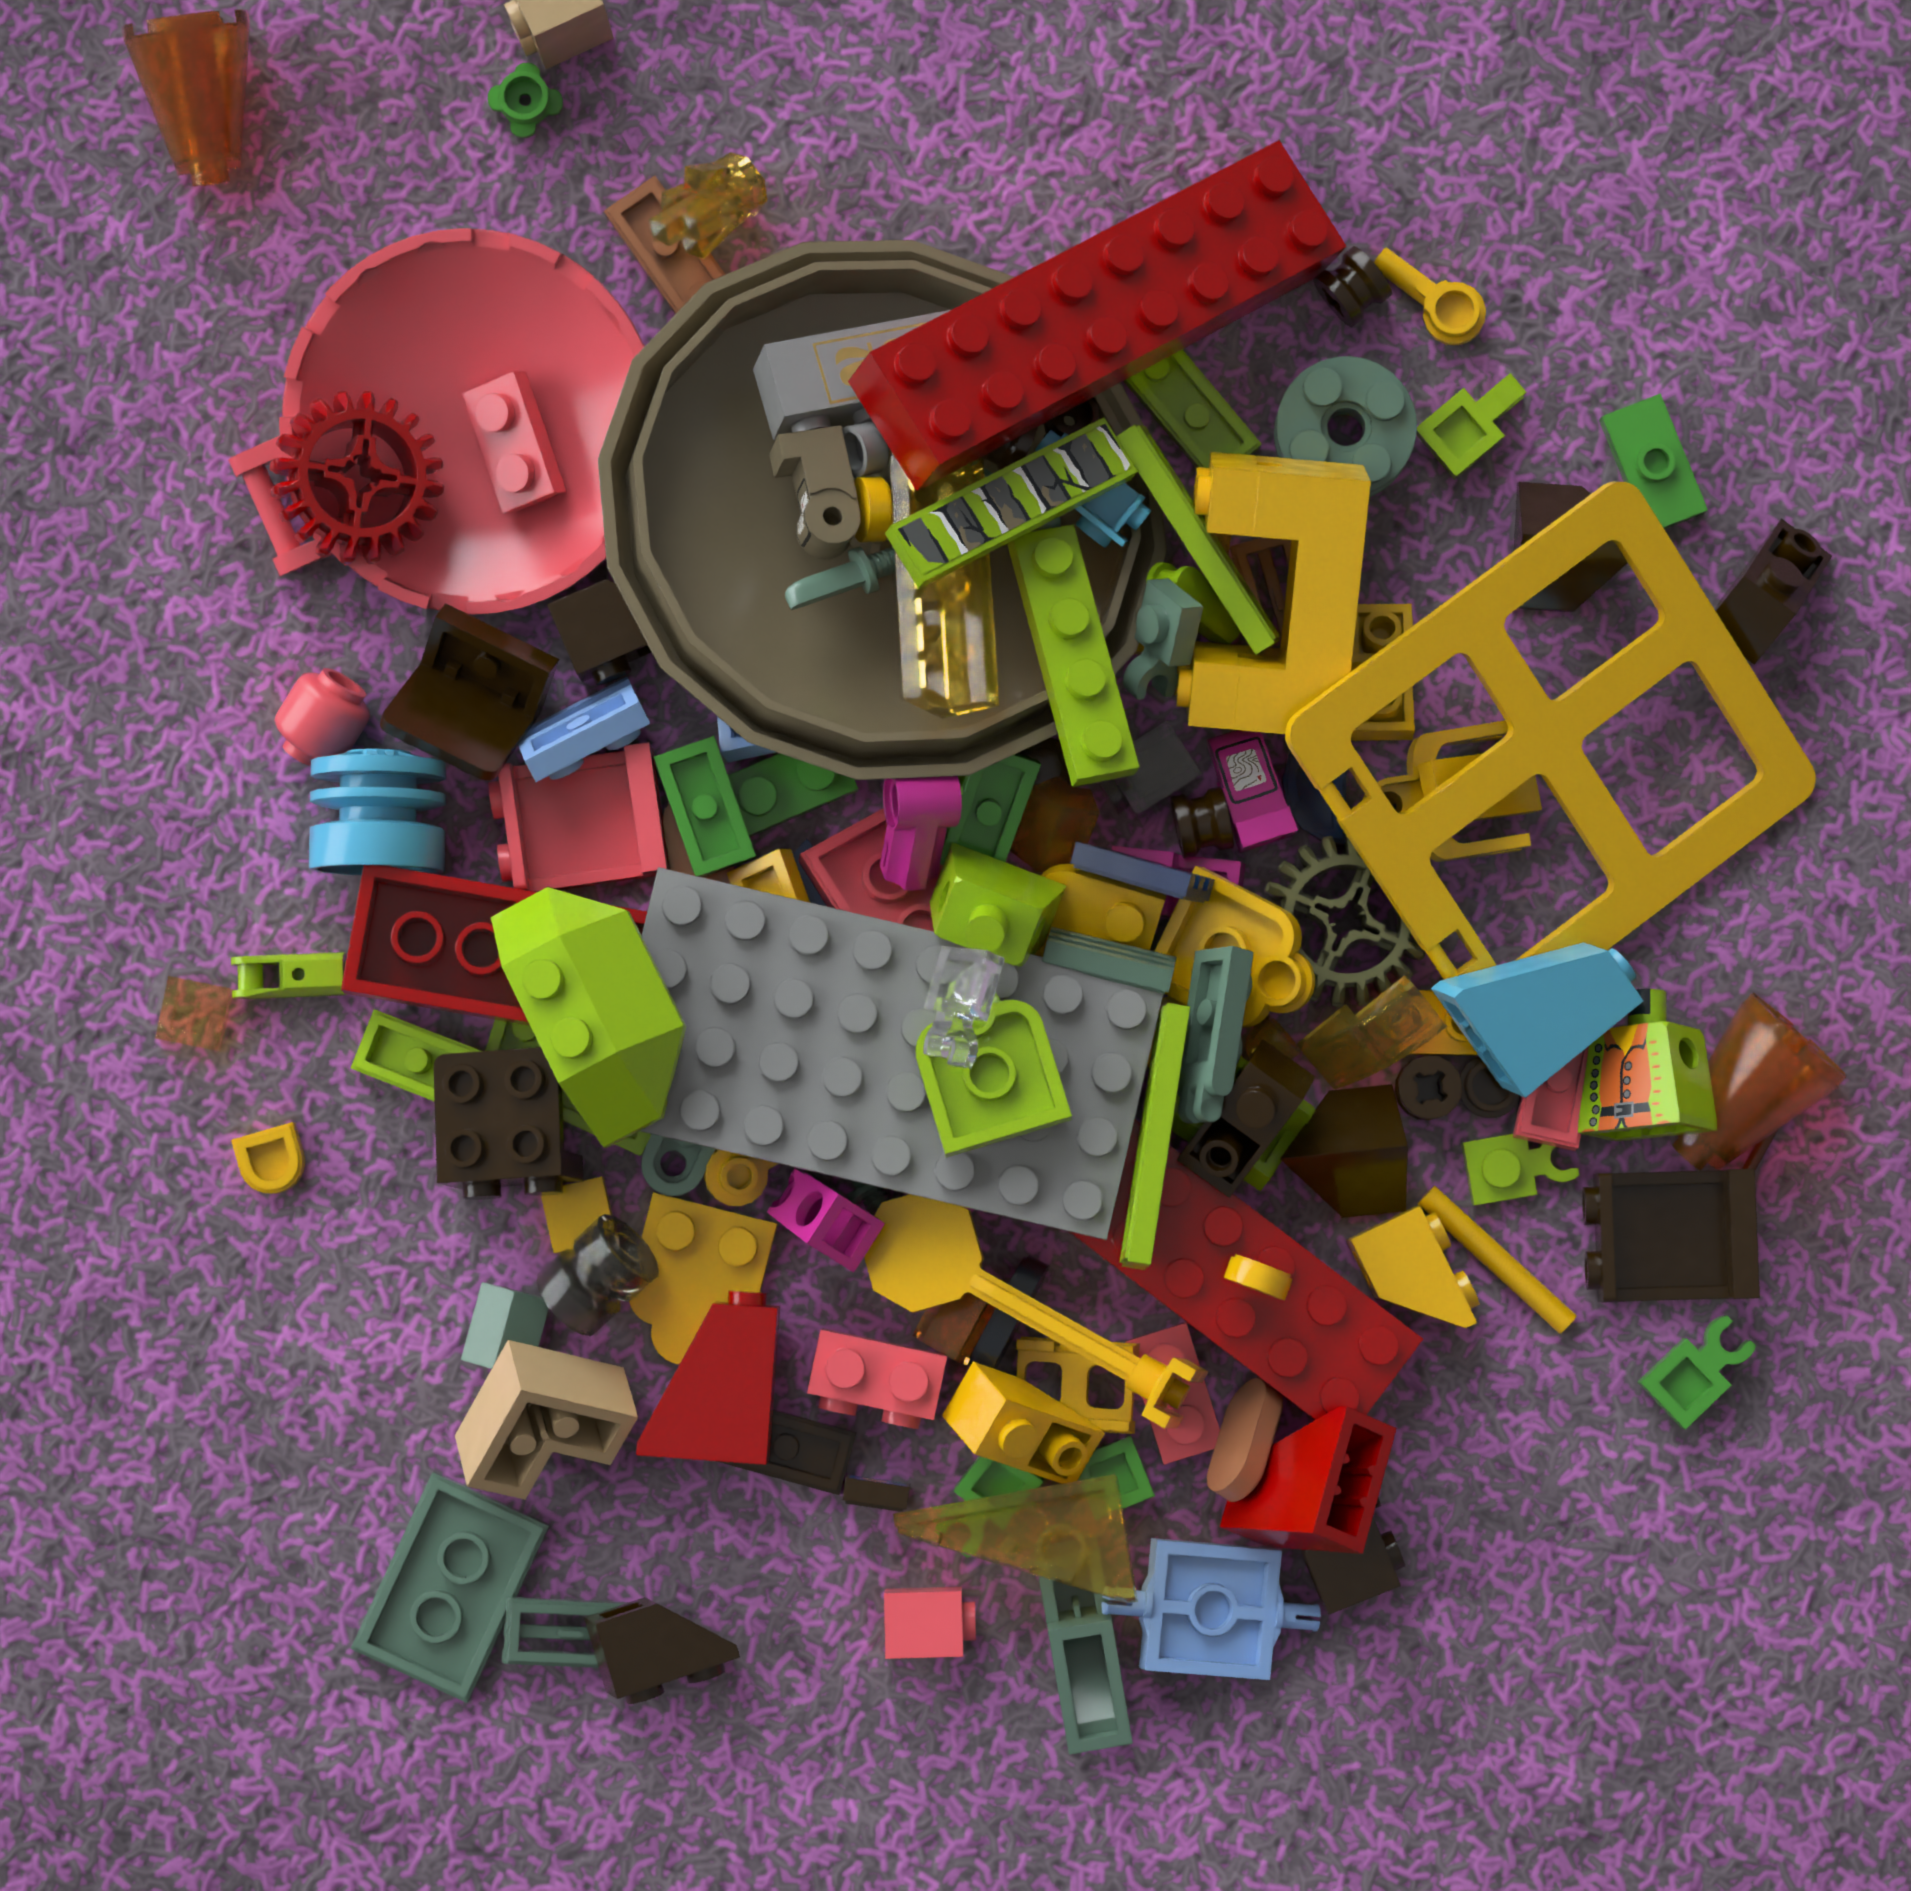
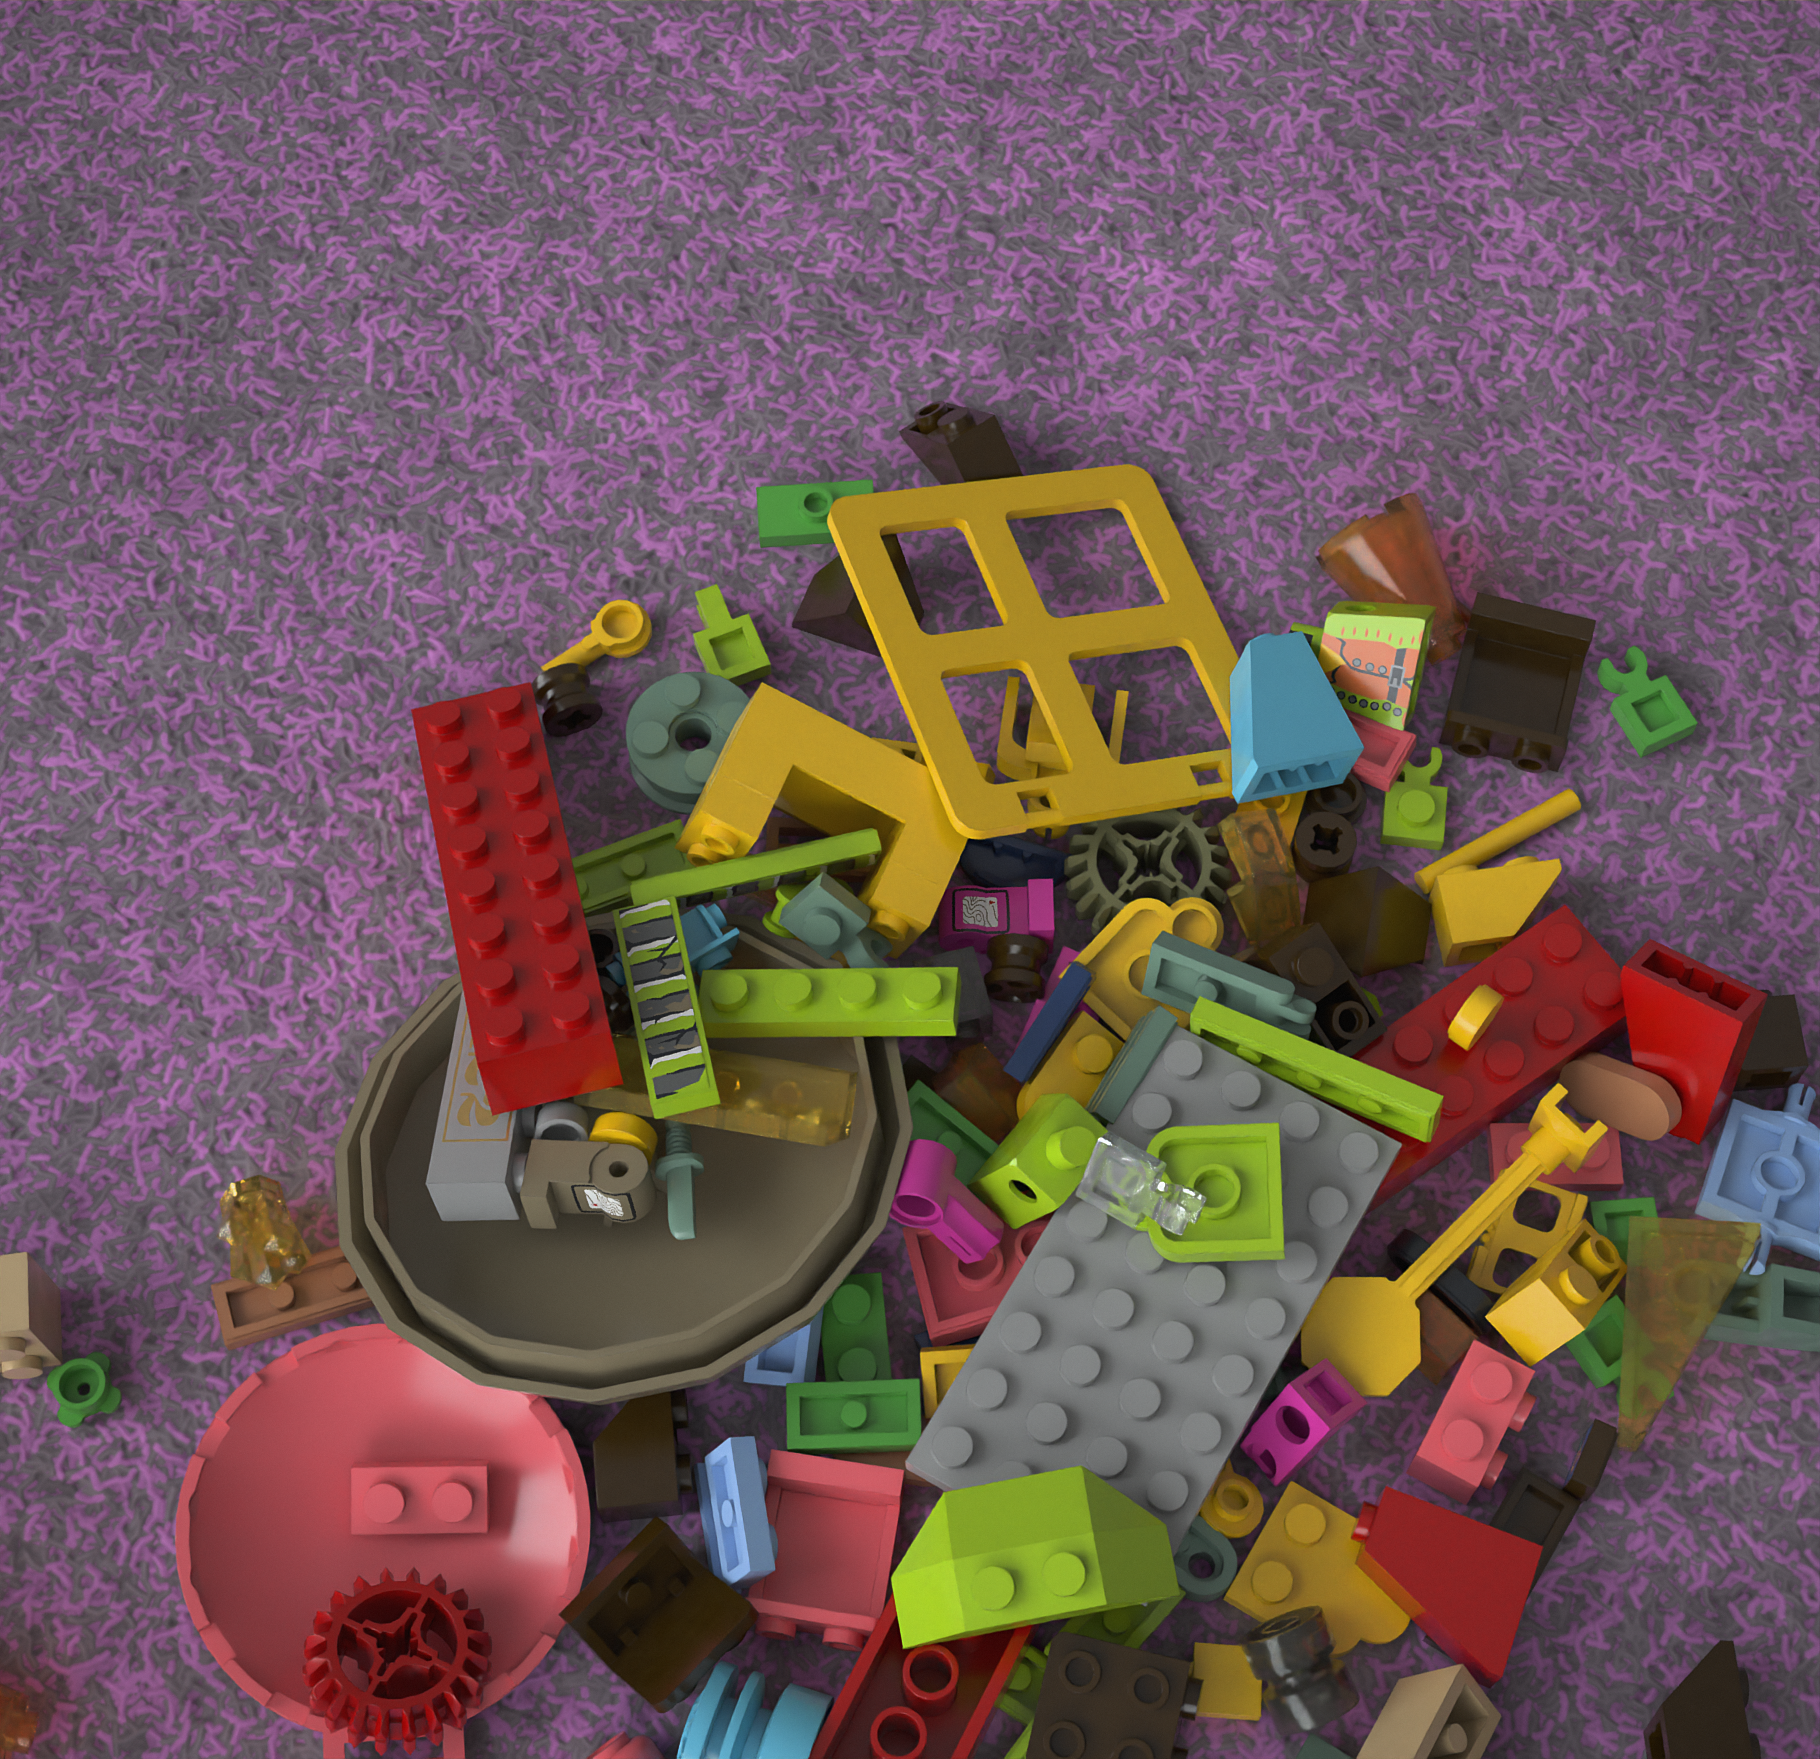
camera: 75 degrees left, 20 degrees down
(927, 1622) = (1732, 1452): coral brick -> none

